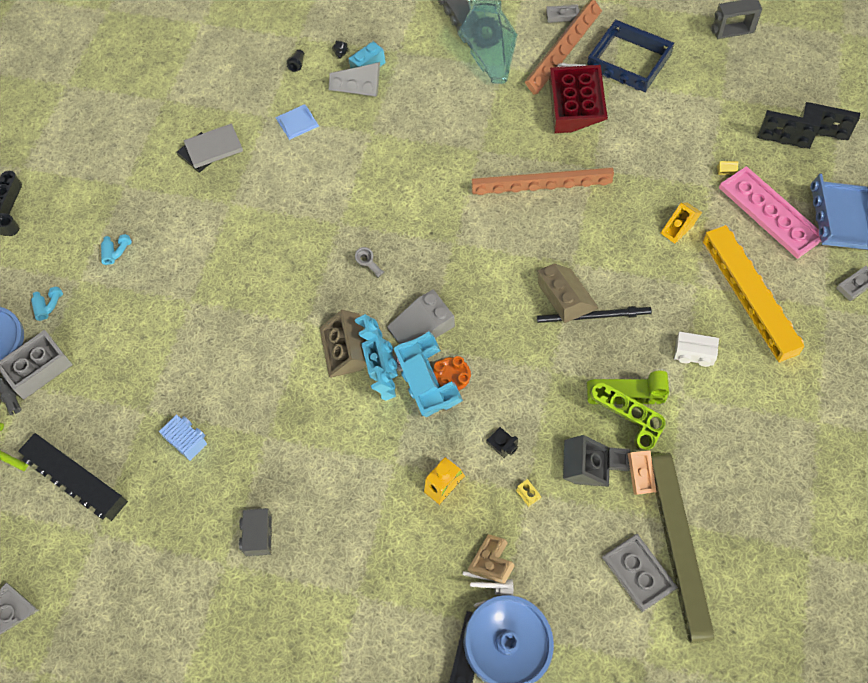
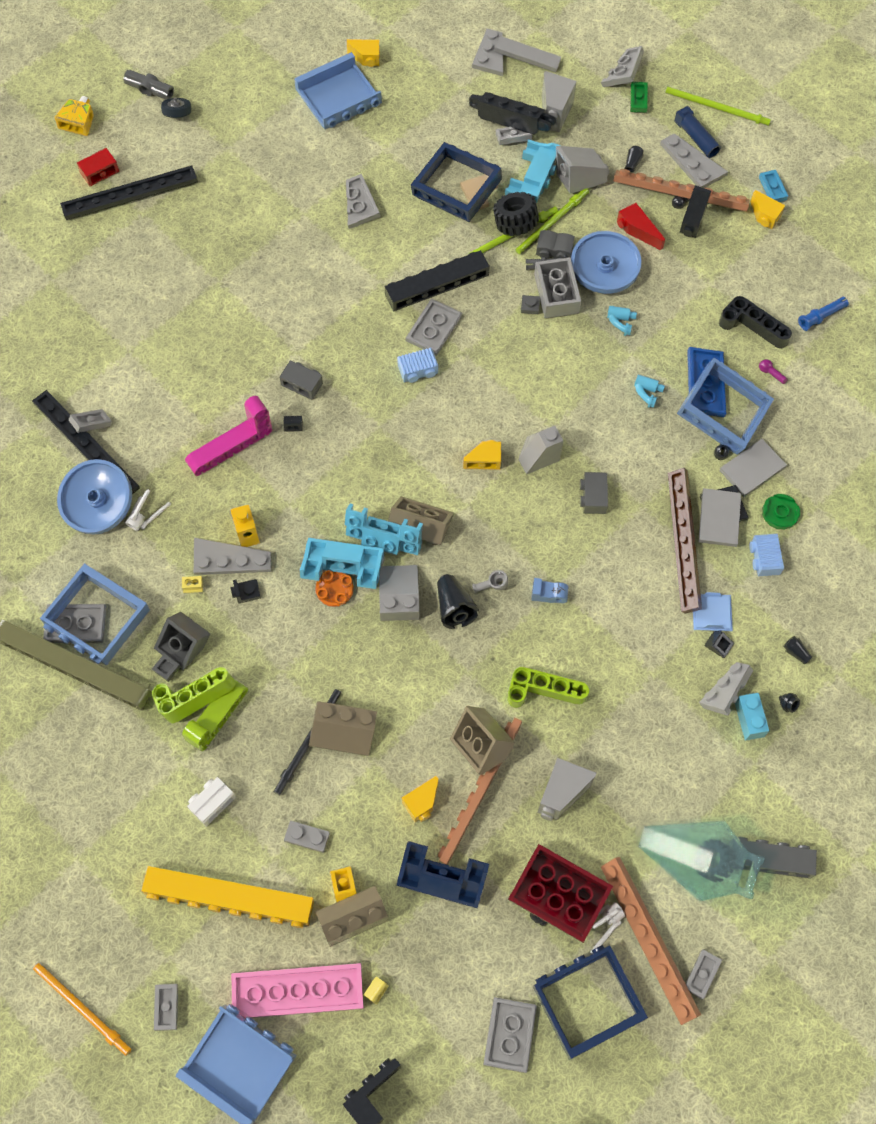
camera: 115 degrees right, 5 degrees up
(46, 183) = (767, 367): none -> magenta bar
(62, 384) = (530, 304): none -> dark grey plate
(83, 212) = (711, 395): none -> blue plate
(104, 163) = (712, 427): none -> medium blue window
(129, 452) = (433, 326): none -> light grey tile
(149, 175) = (717, 452): none -> black hinge
(152, 150) = (753, 467): none -> light grey tile
(183, 117) = (785, 515): none -> green tile
(218, 288) = (541, 450): none -> light grey slope
(228, 106) = (767, 555): none -> light blue brick
(239, 234) = (594, 493): none -> dark grey brick
(245, 160) = (684, 541): none -> plate
(250, 329) = (484, 456): none -> yellow slope
(309, 511) = (293, 423): none -> black piece
(320, 106) = (719, 643): none -> black slope
(330, 535) = (233, 441): none -> dark pink beam
(350, 222) = (549, 591): none -> medium blue leg
(404, 275) = (455, 603): none -> black cone
(436, 198) = (548, 690): none -> lime beam
(487, 485) = (224, 558): none -> light grey wing
(488, 561) = (162, 518): tan tile -> none
(505, 129) = (564, 788): none -> light grey slope
(507, 192) = (481, 739): none -> dark tan slope
(576, 212) = (421, 800): none -> yellow slope
(628, 174) = (441, 879): none -> dark blue bracket
(642, 472) = (141, 674): light nougat plate -> none
(658, 541) = (69, 592): none -> medium blue window
(664, 271) = (306, 836): none -> light grey plate
(685, 87) = (510, 1035): none -> light grey tile
(699, 196) = (352, 916): none -> dark tan slope

